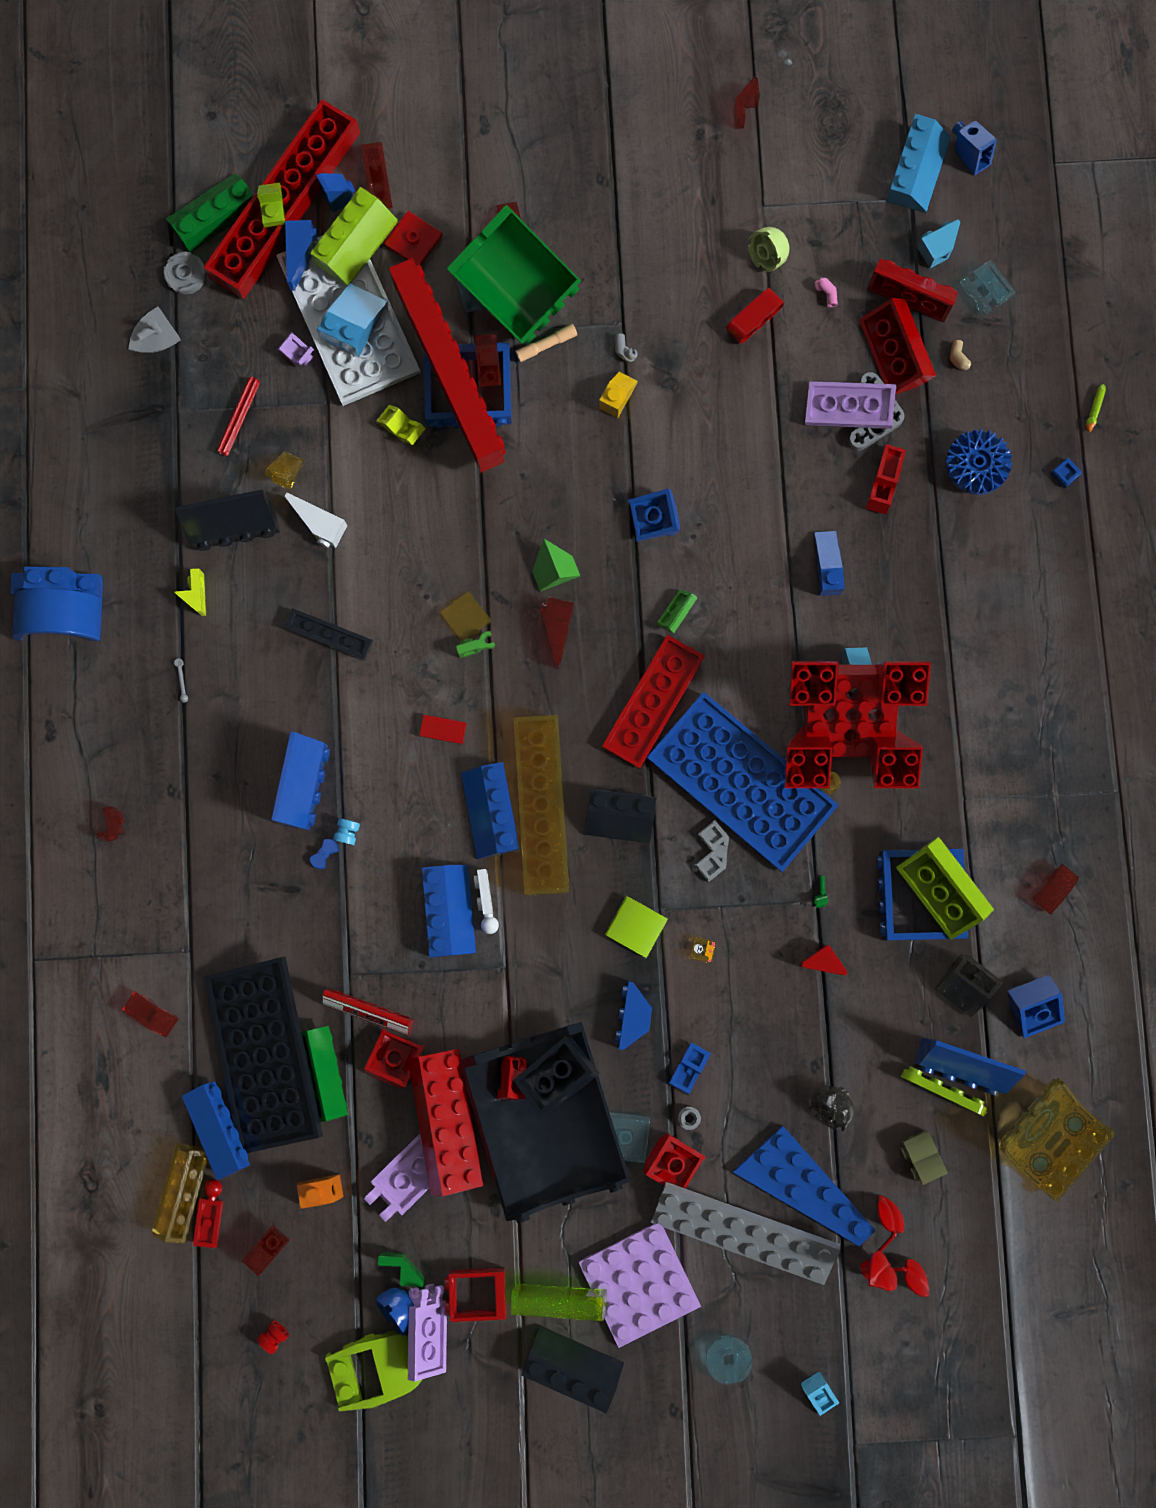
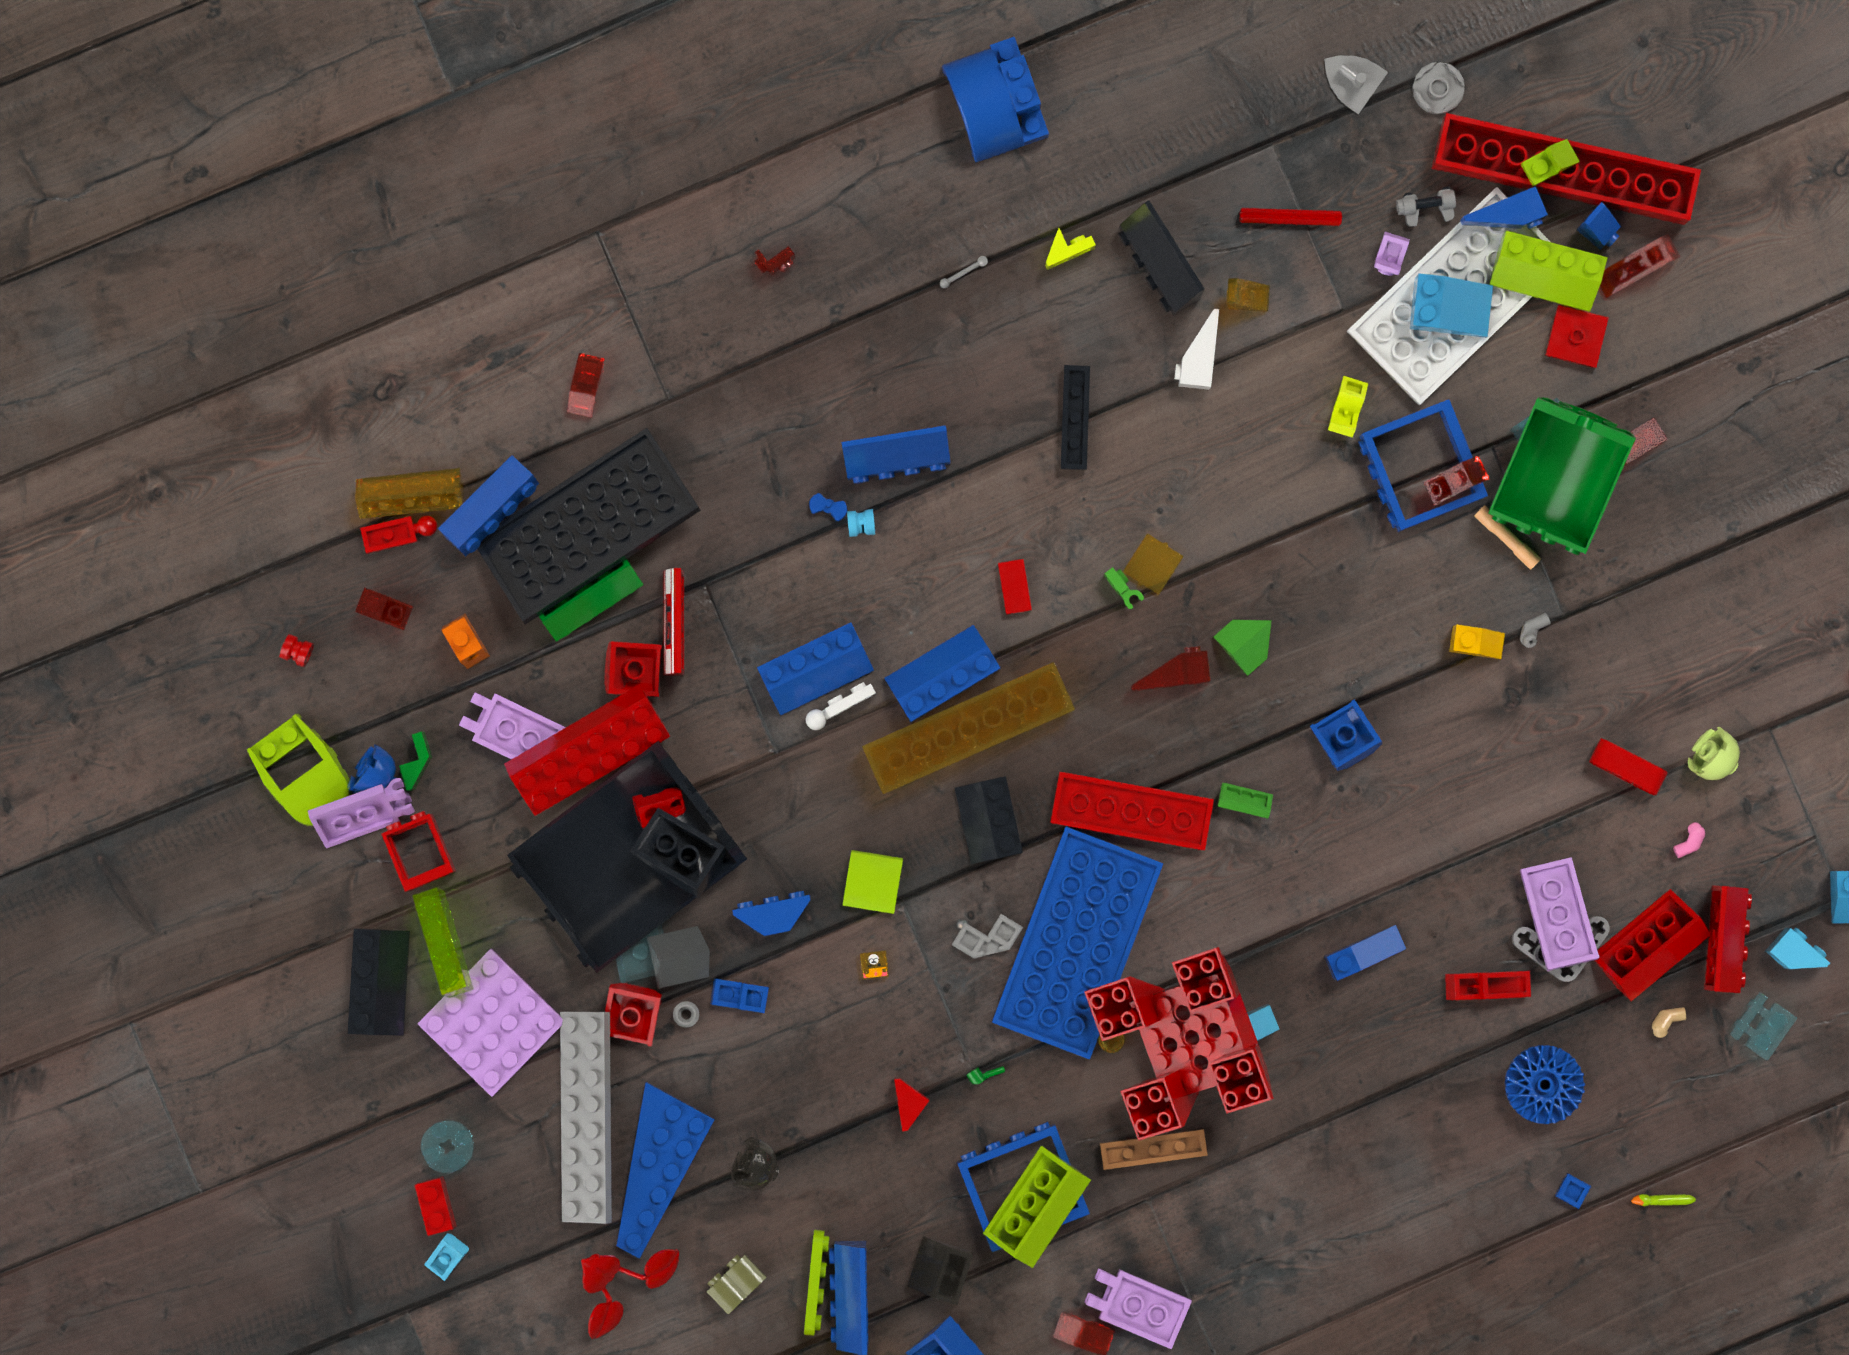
camera: 70 degrees right, 5 degrees up
(211, 212) = (1523, 90): green slope -> none
(264, 324) = (1410, 205): none -> light grey piece
(448, 365) = (1436, 431): red brick -> none
(640, 1106) = (679, 956): none -> dark grey slope
(775, 1389) = (435, 1205): none -> red brick
(924, 797) = (1153, 1149): none -> medium nougat plate
(1048, 836) = (1140, 1307): none -> lavender tile

